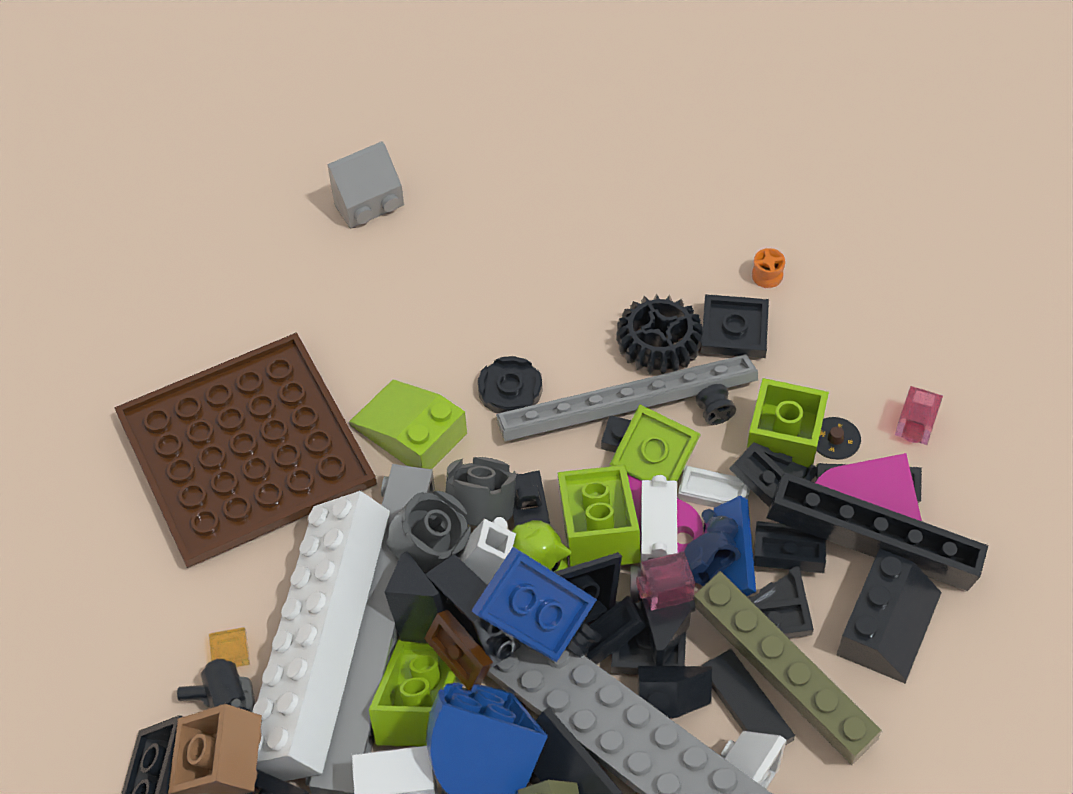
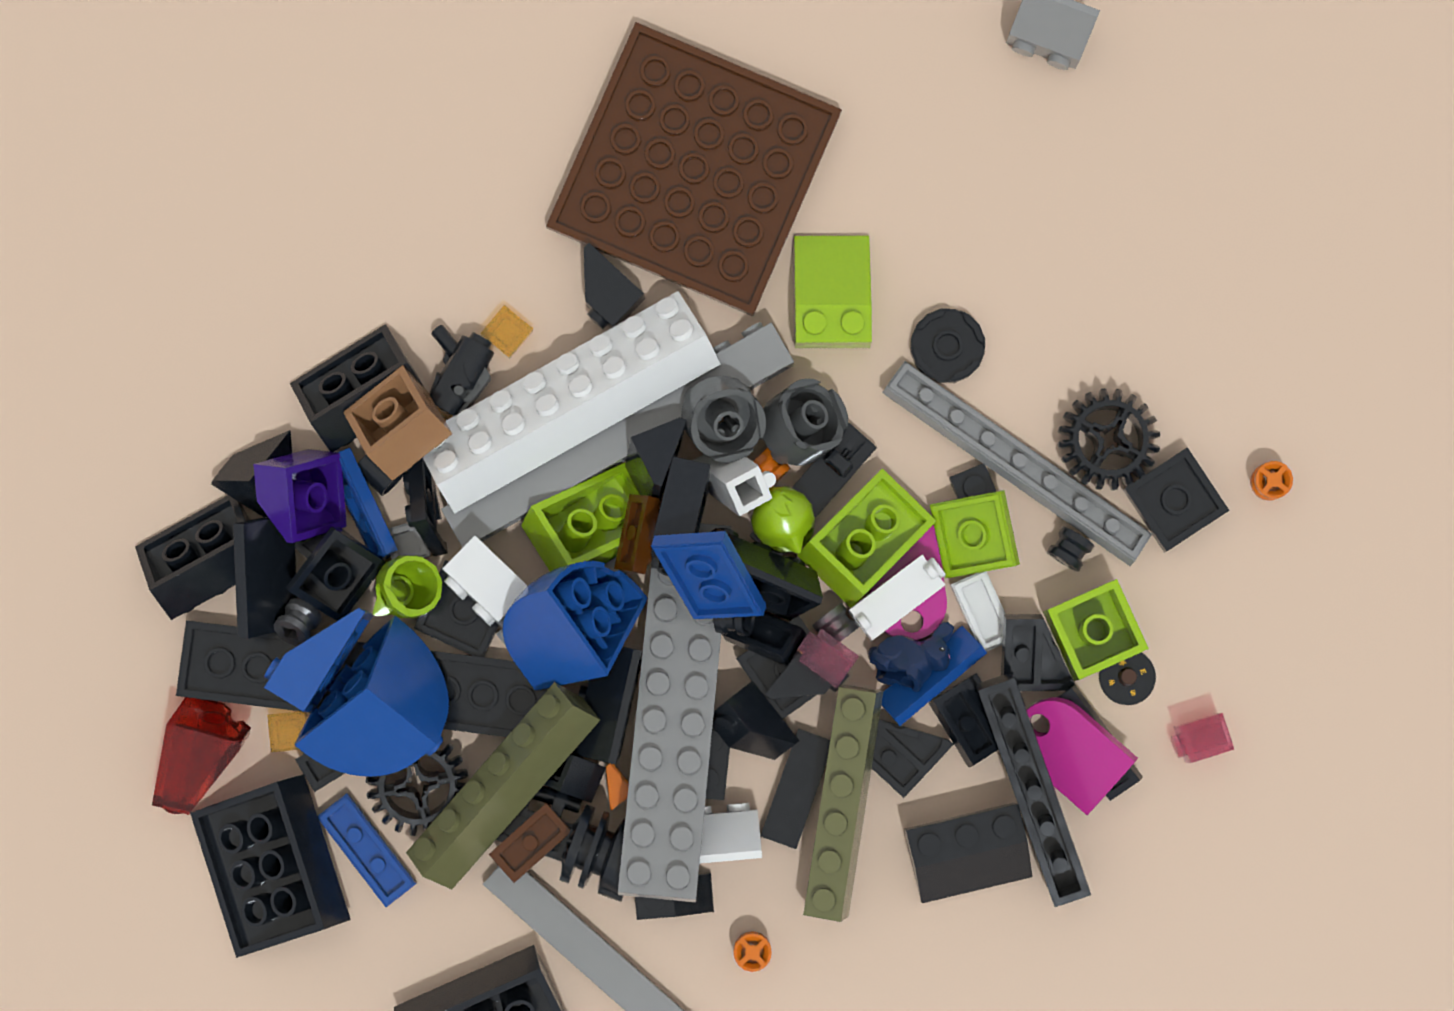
camera: 50 degrees right, 30 degrees up
(265, 555) = (607, 290): none -> black slope

